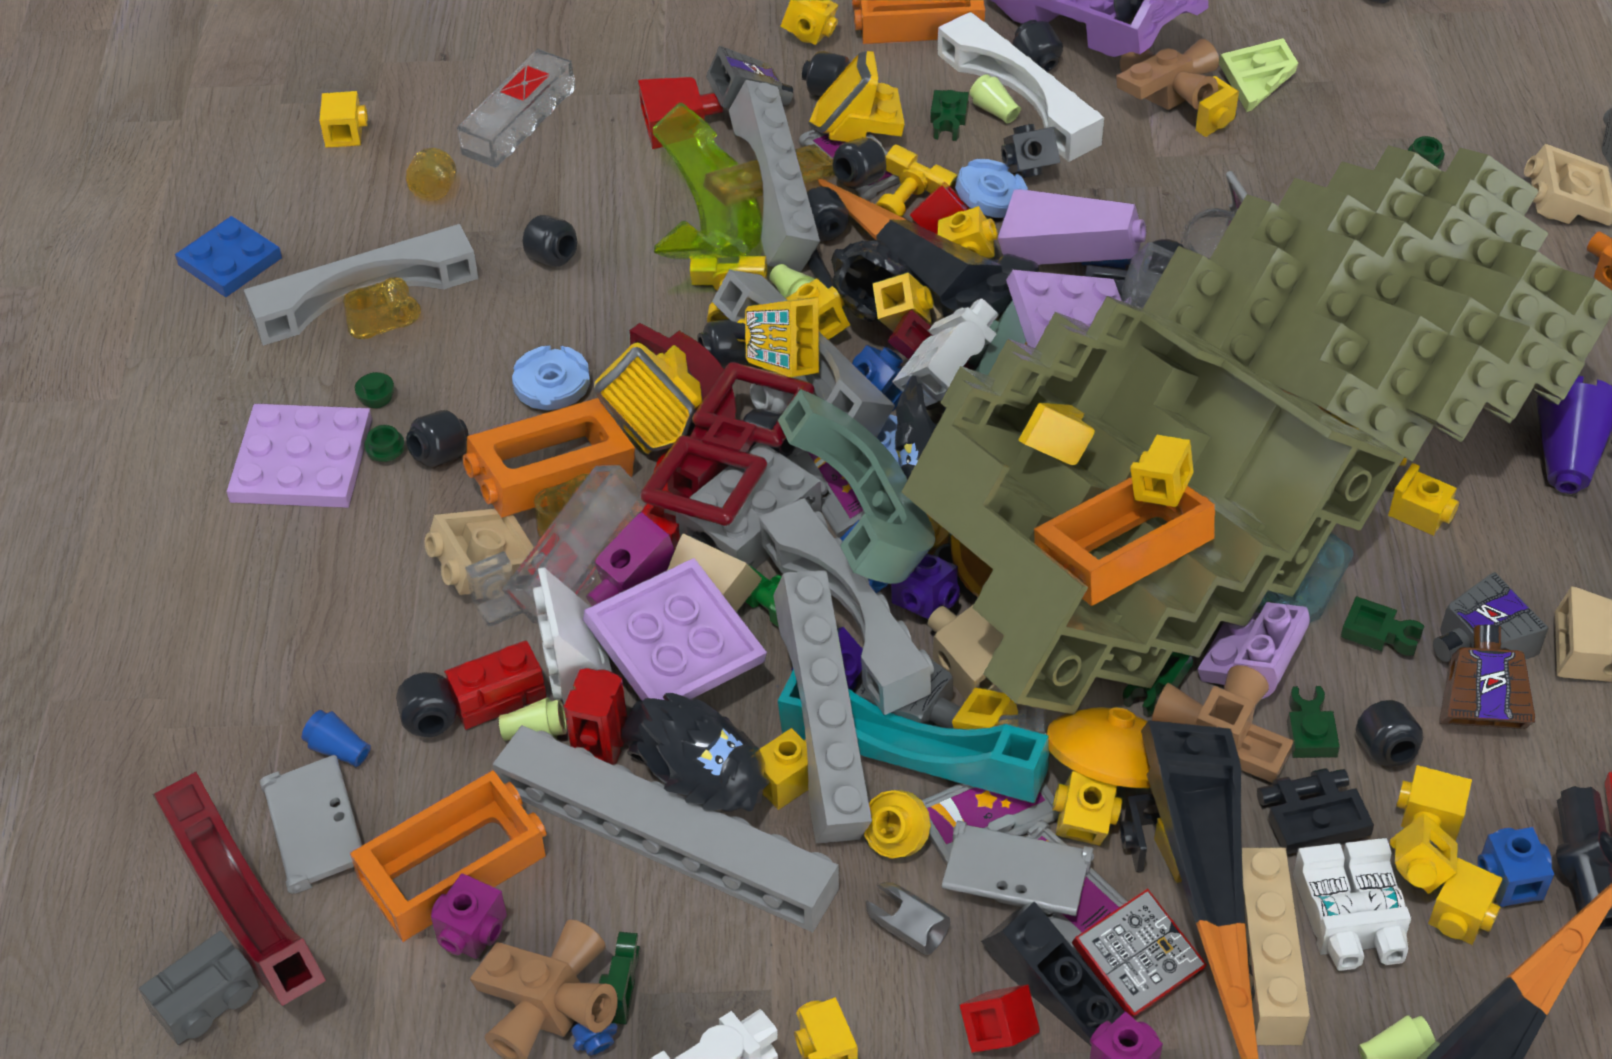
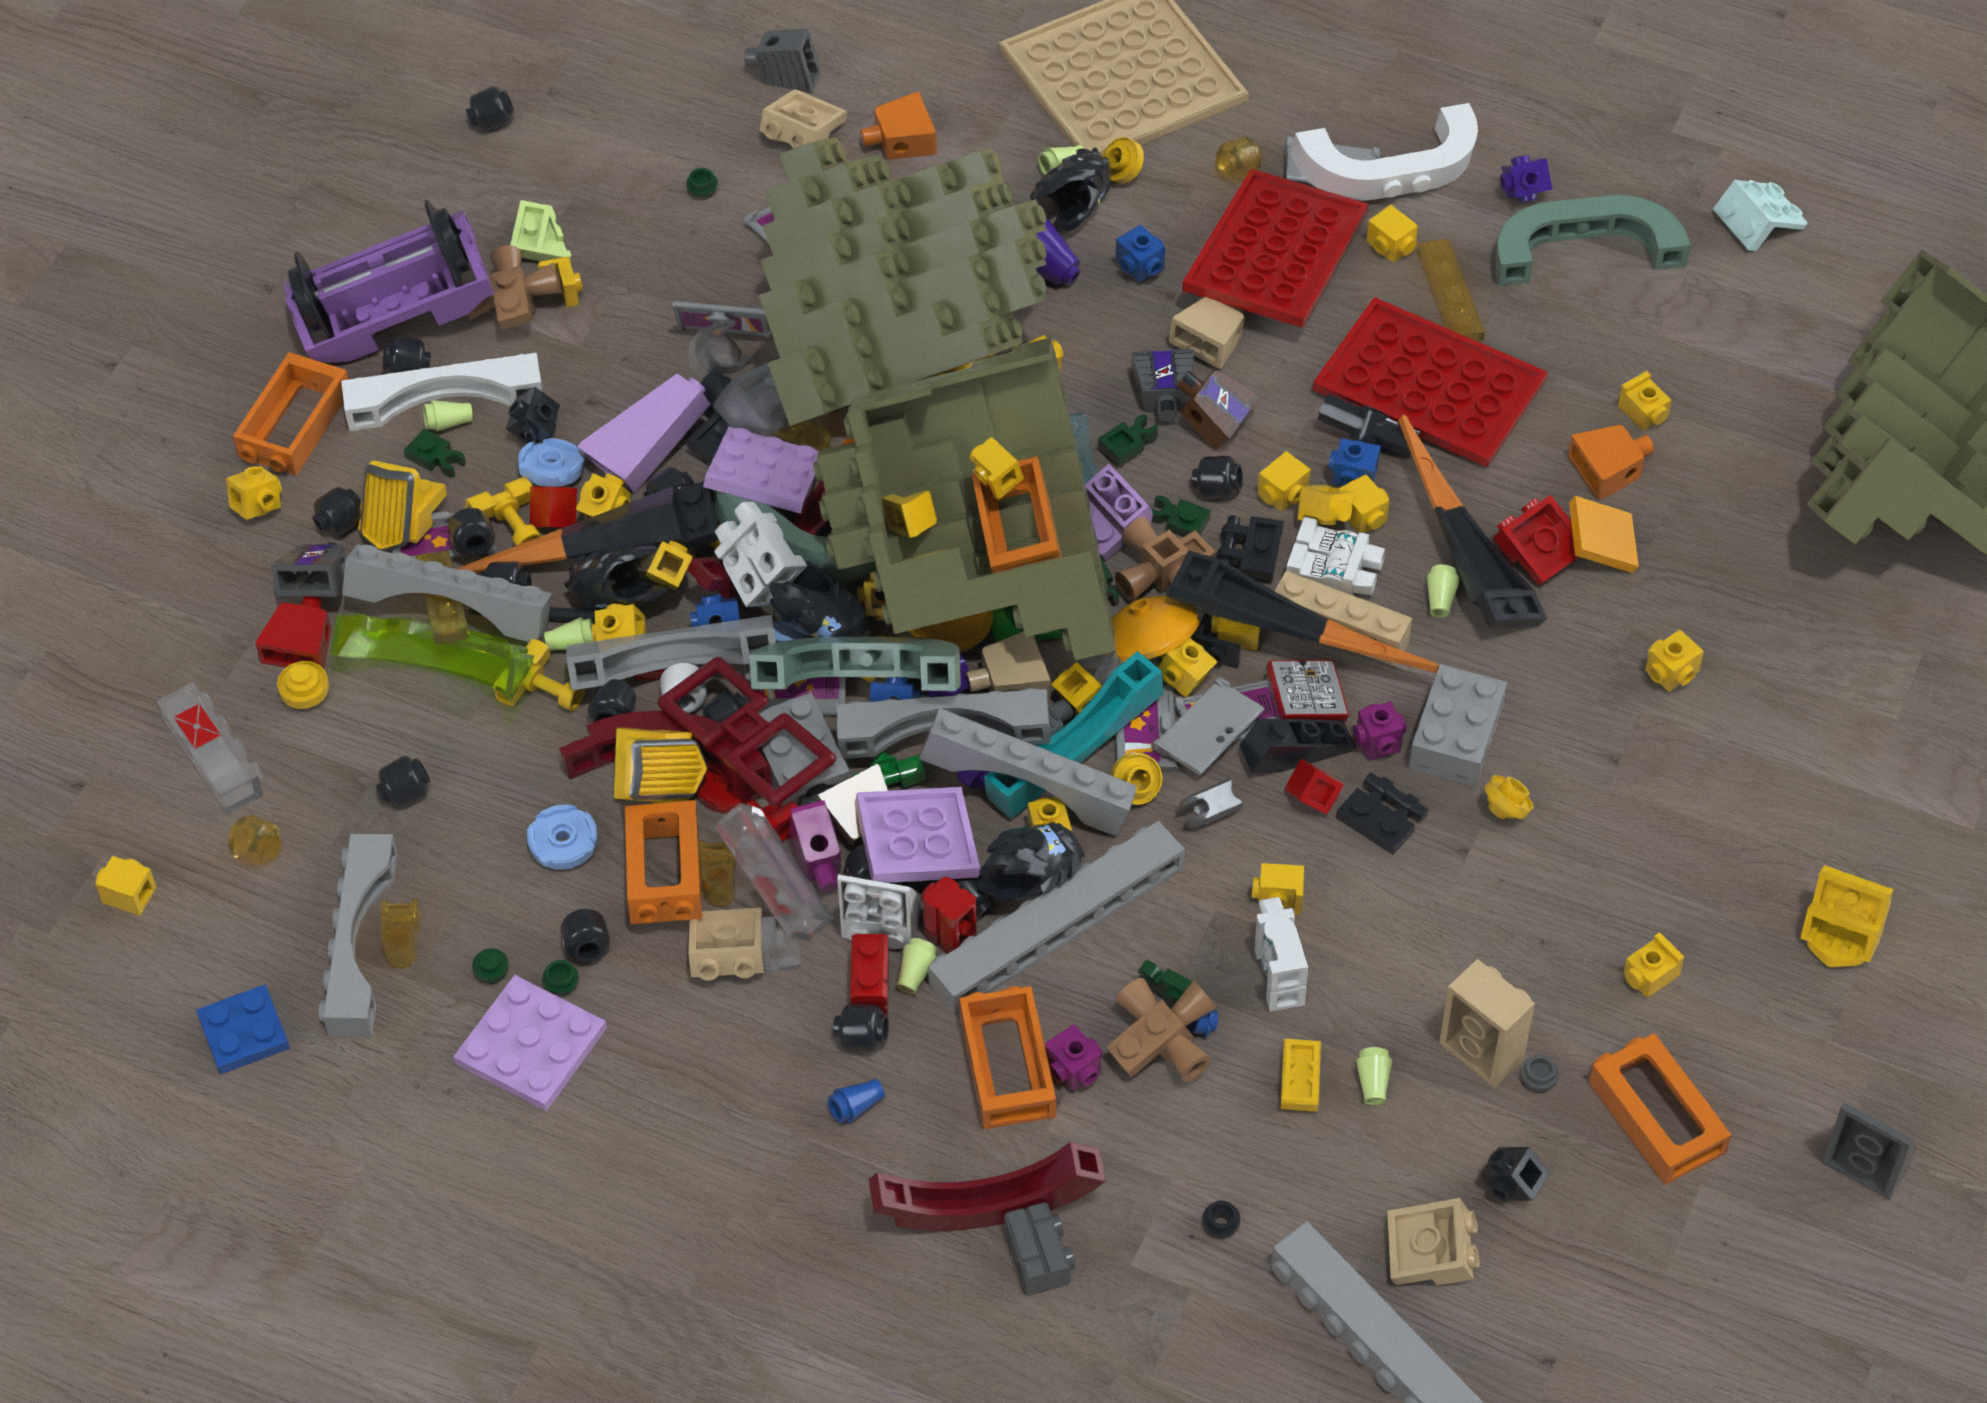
camera: 65 degrees left, 5 degrees up
(310, 831) = (924, 1141): light grey door -> none
(623, 136) = (303, 685): none -> yellow plate
(782, 336) = (658, 653): yellow torso -> none

